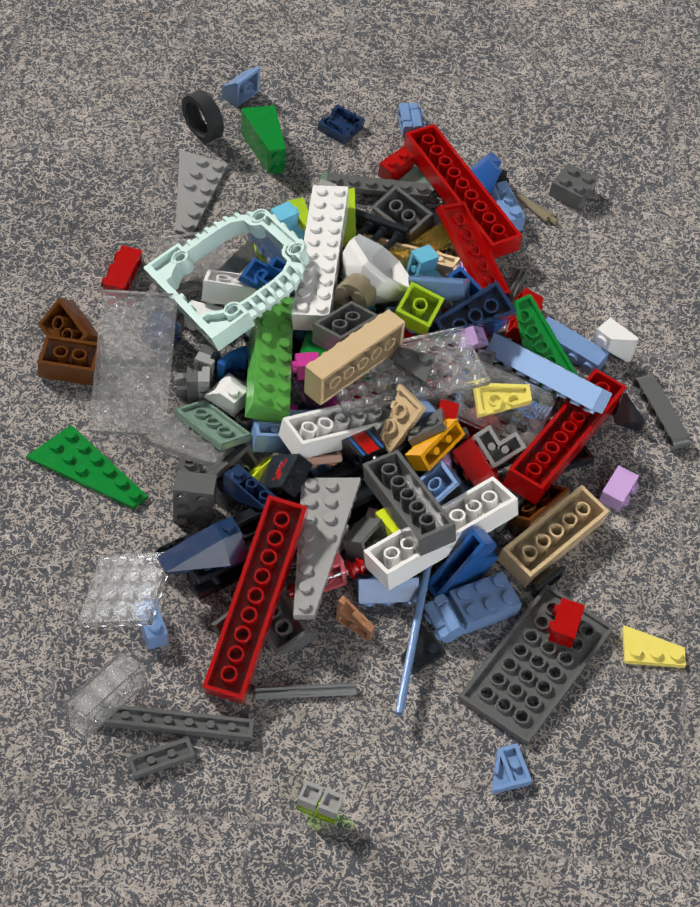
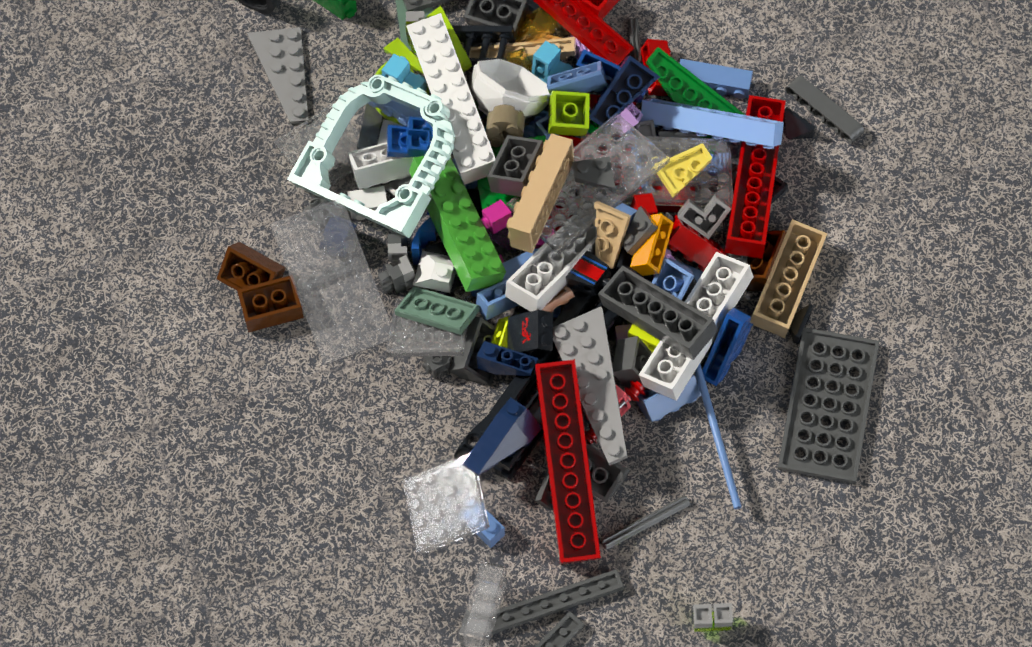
camera: 15 degrees left, 10 degrees up
(84, 464) = (339, 400): green wing -> none
(123, 270) = (265, 190): red brick -> none
(194, 498) = (461, 391): dark grey brick -> none
(353, 619) = (655, 438): nougat wing -> none
(426, 651) = (731, 436): black wing -> none
(444, 619) = (732, 401): medium blue brick -> none
(485, 602) = (758, 370): medium blue brick -> none
(509, 770) = (851, 512): medium blue wing -> none
(566, 622) = (838, 357): red brick -> none
(616, 339) = (754, 56): white slope -> none
(619, 488) = (822, 204): lavender brick -> none
(649, 650) = (918, 347): light yellow wing -> none

